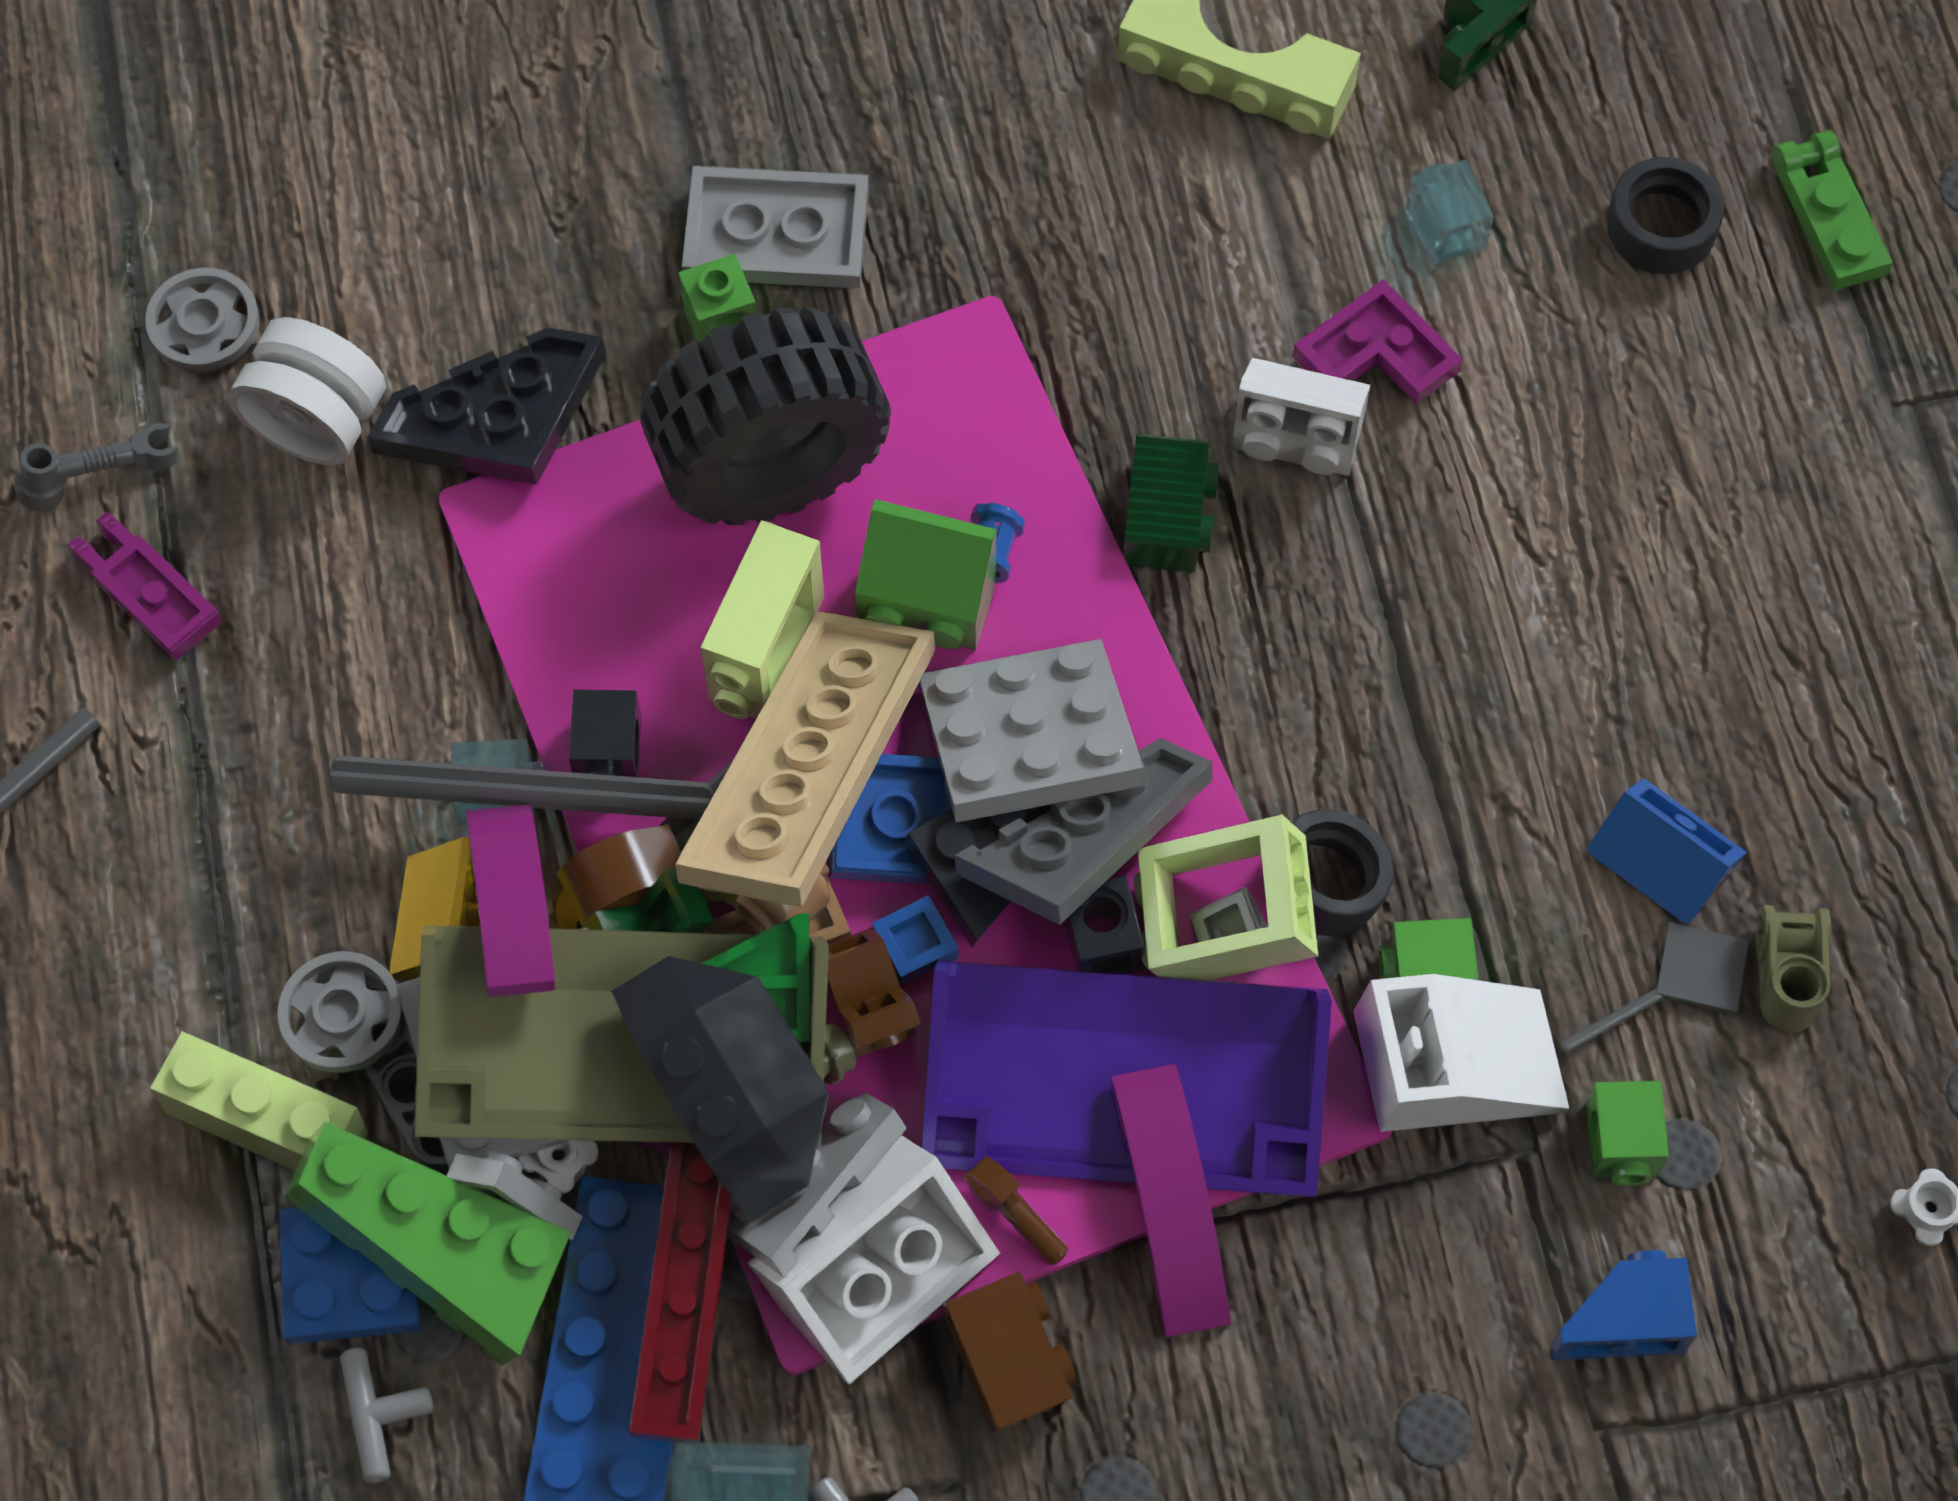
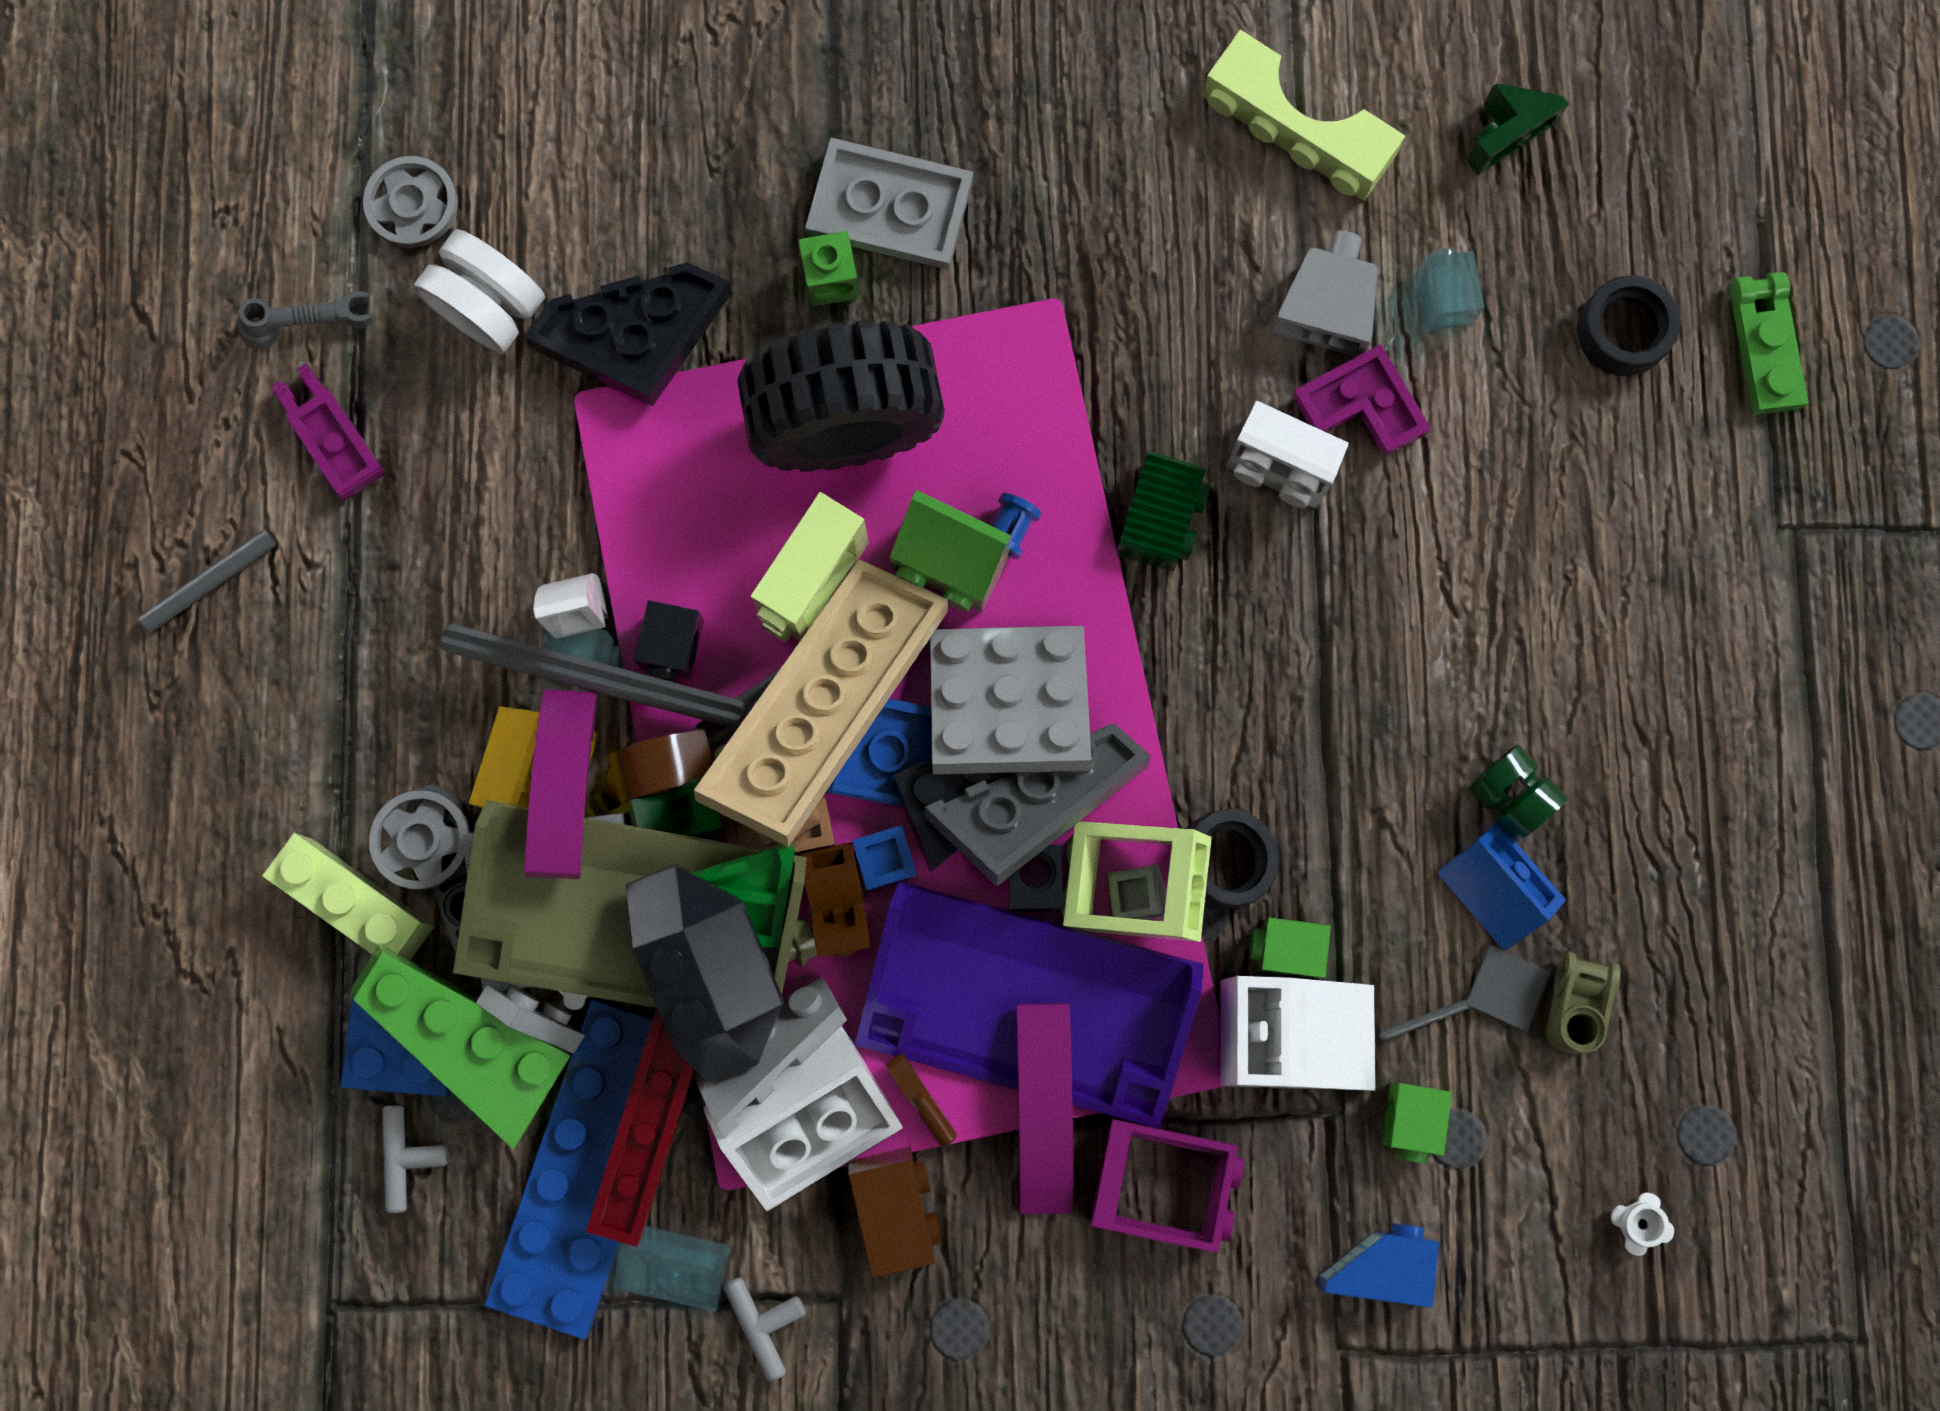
camera: 10 degrees right, 15 degrees up
(483, 712) = (571, 606): none -> white slope
(1314, 243) = (1331, 298): none -> light grey torso
(1338, 1206) = (1218, 1219): none -> magenta window
(1678, 748) = (1530, 806): none -> dark green wheel

